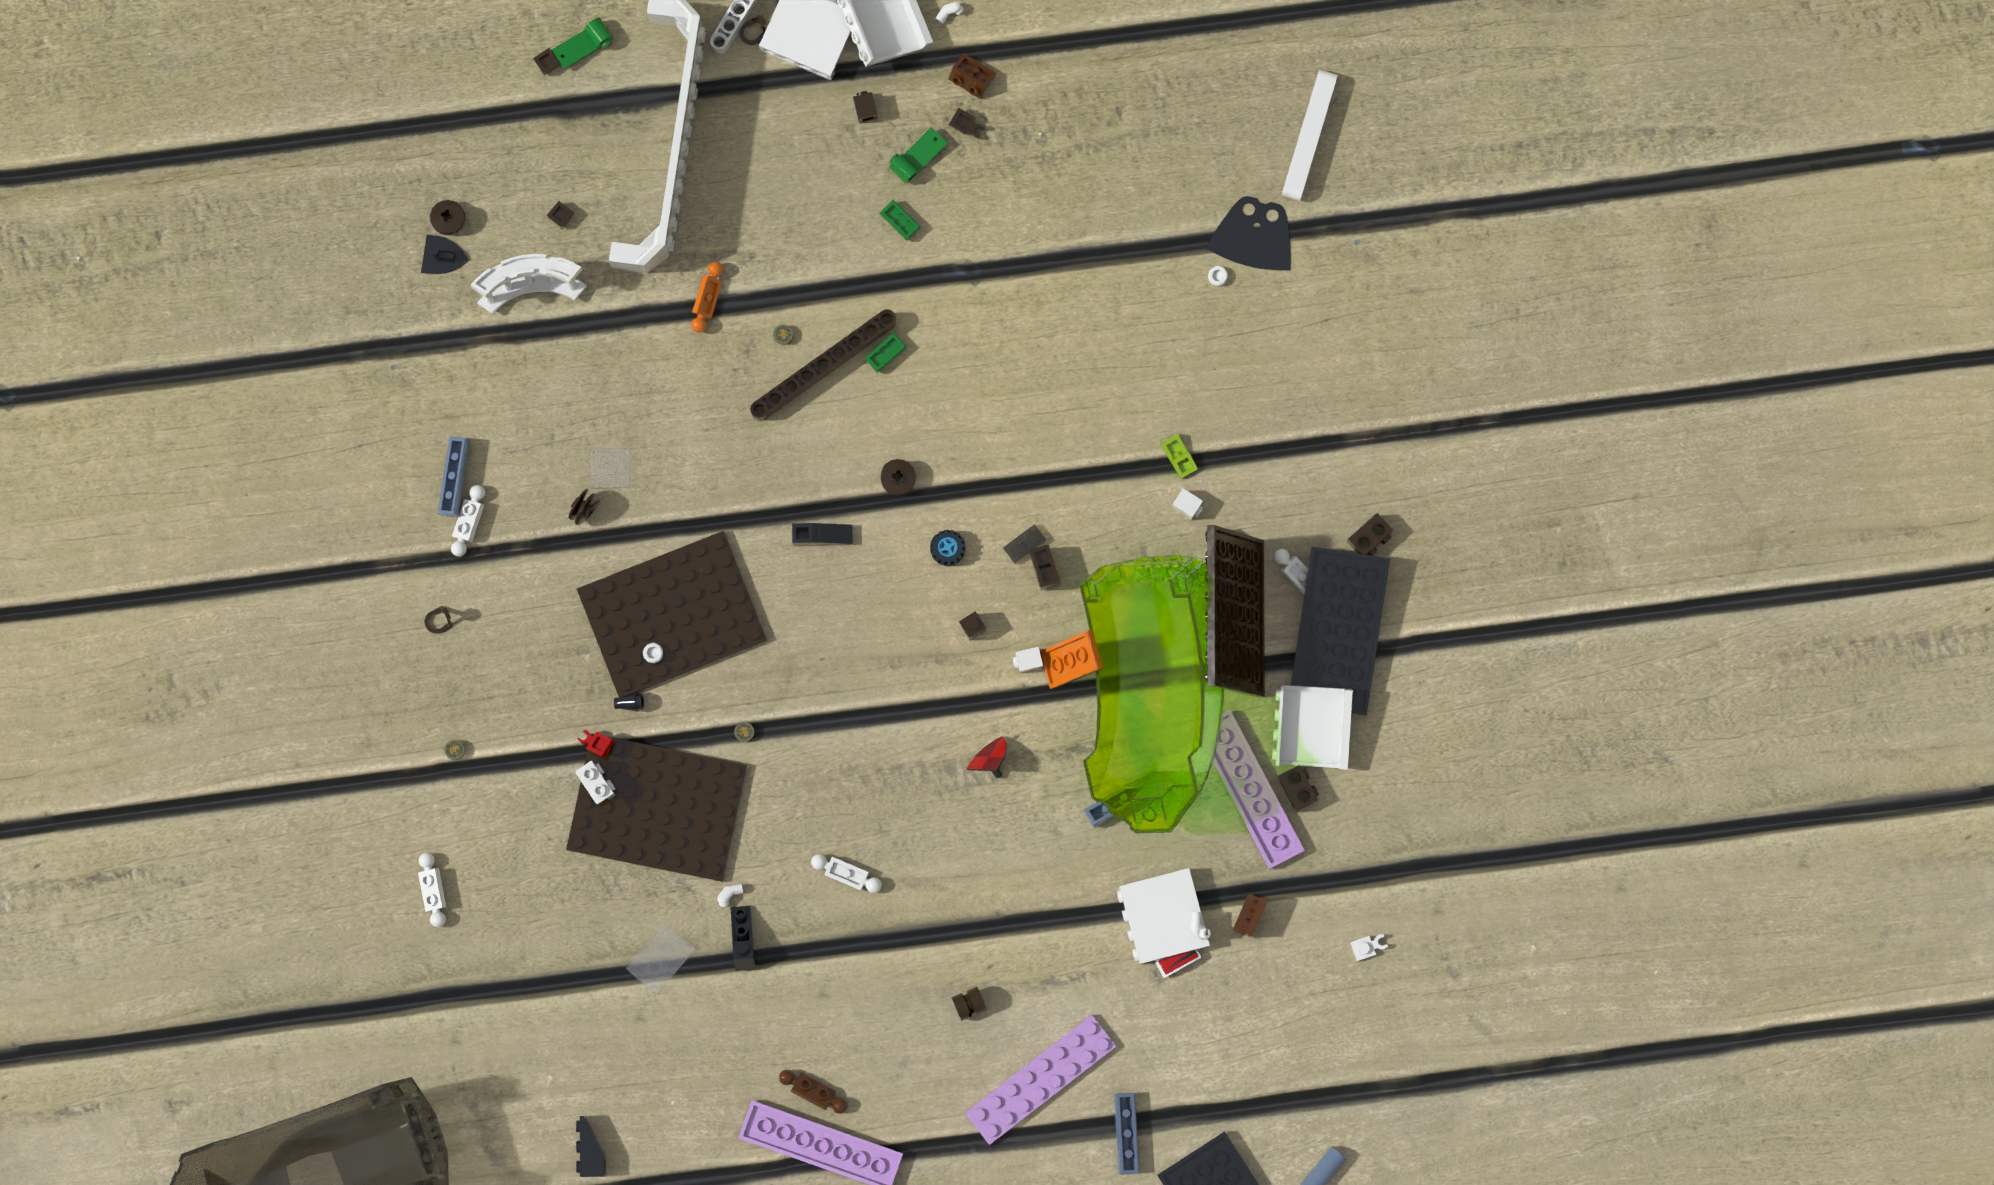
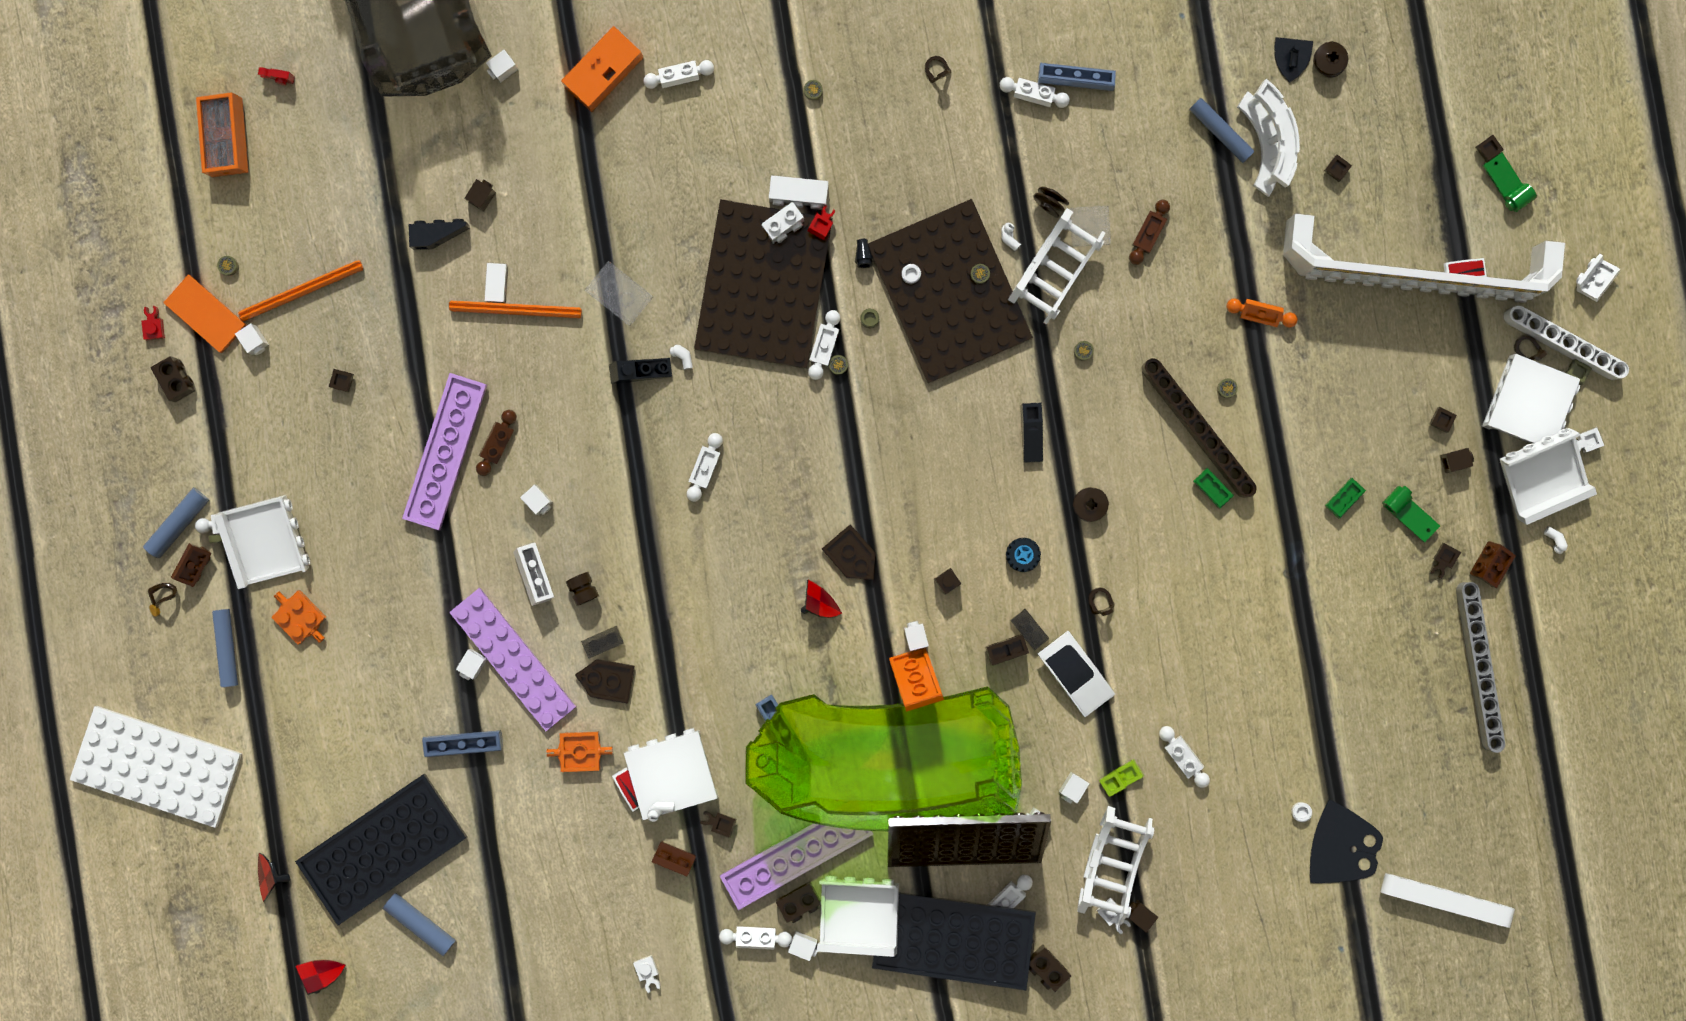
camera: 90 degrees right, 5 degrees up
(418, 1073) = (501, 66): none -> white brick
(423, 969) = (602, 69): none -> orange brick
(516, 330) = (1221, 130): none -> sand blue brick
(550, 1101) = (480, 194): none -> dark brown brick
(562, 767) = (799, 191): none -> white brick
(617, 553) = (1007, 236): none -> white arm
(618, 408) = (1149, 232): none -> reddish brown plate
(641, 519) = (1042, 259): none -> white fence
(644, 1088) = (495, 282): none -> white tile
(656, 582) = (980, 273): none -> olive tile
(670, 90) = (1472, 267): none -> red slope
(673, 1068) = (515, 309): none -> orange axle
(696, 698) = (869, 318): none -> olive tile
(723, 745) = (824, 345): none -> white plate
(739, 479) = (1083, 350): none -> olive tile
(823, 119) = (1443, 419): none -> dark brown plate
(875, 1049) = (537, 500): none -> white brick
(942, 724) = (851, 554): none -> dark brown tile
(952, 1053) = (533, 574): none -> white brick
(1009, 467) = (1108, 610): none -> dark brown piece
(1025, 984) = (602, 642): none -> clear smoke plate
(1045, 1122) = (471, 664): none -> white brick
(1065, 981) = (607, 680): none -> dark brown tile
(1067, 99) = (1486, 674): none -> light grey beam
(1071, 497) = (1076, 674): none -> slope
(1137, 1011) = (579, 751): none -> orange plate
(1158, 391) = (1184, 757): none -> white plate
(1216, 866) = (721, 823): none -> dark brown plate
(1259, 483) = (1096, 858): none -> white fence
(1316, 470) = (1112, 917): none -> white plate
(1318, 440) = (1142, 916): none -> dark brown brick
(1334, 834) = (755, 938): none -> white plate
(1343, 784) = (803, 946): none -> white brick

